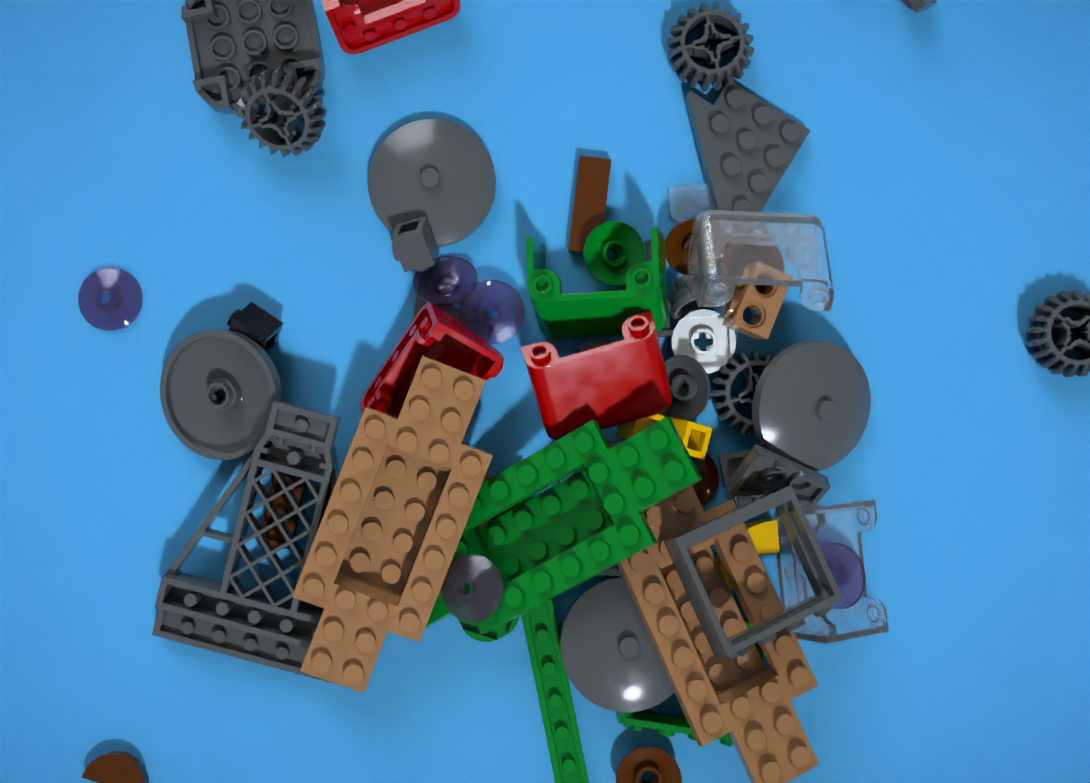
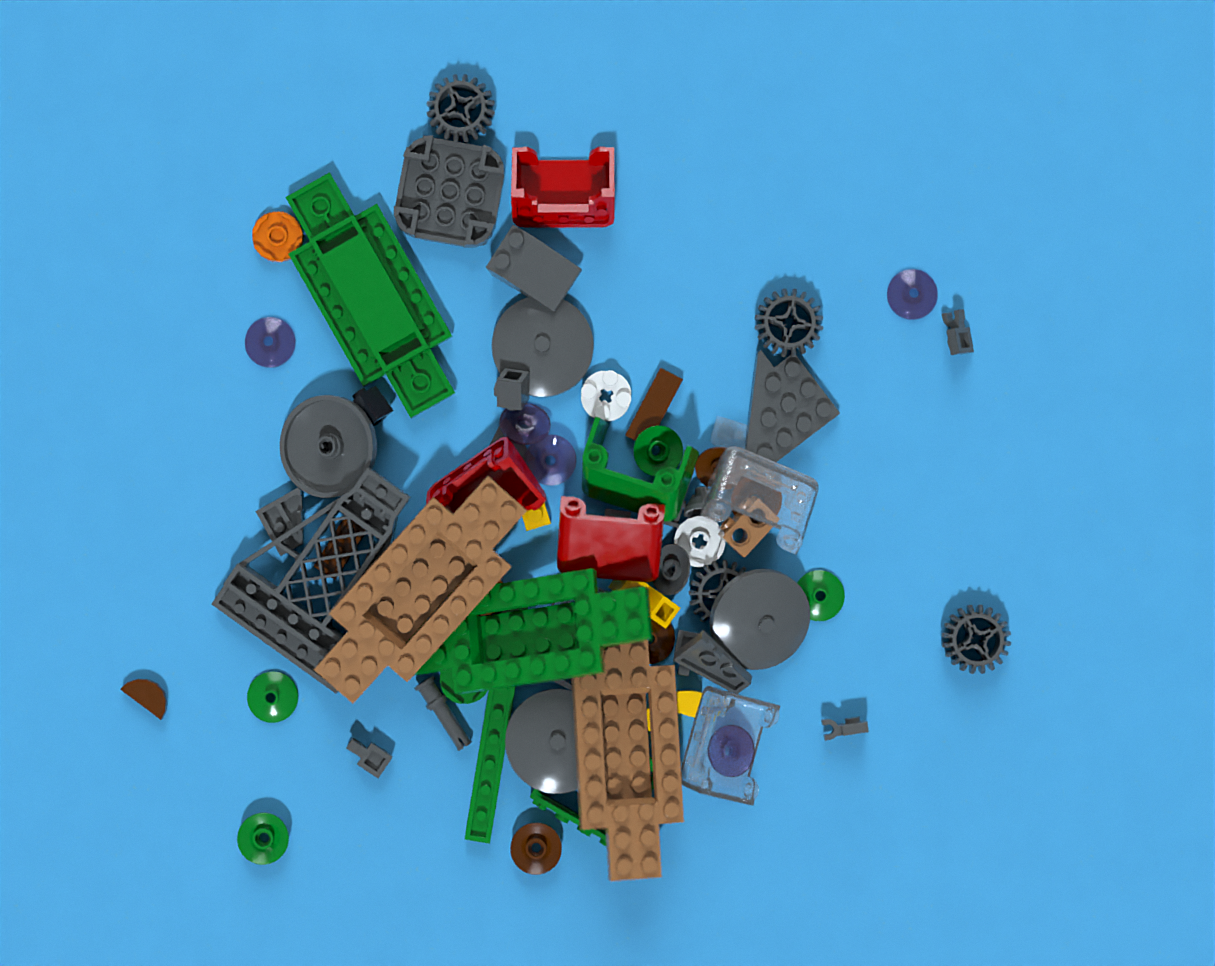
camera: 20 degrees right, 0 degrees up
(72, 172) = (277, 236): none -> orange tile
(197, 498) = (283, 516): none -> dark grey wing
(206, 198) = (362, 300): none -> green piece
(279, 705) = (281, 687): none -> green dish
(285, 102) = (457, 250): dark grey gear -> none
(385, 93) = (533, 268): none -> dark grey slope
(414, 745) = (372, 759): none -> dark grey plate
(465, 650) = (437, 702): none -> dark grey pin
(485, 586) = (470, 659): dish -> none
(500, 387) = (536, 518): none -> yellow plate
(525, 195) = (609, 381): none -> white plate
(806, 548) = (712, 717): dark grey window -> none
(863, 334) = (832, 588): none -> green dish
(965, 493) = (852, 726): none -> dark grey plate

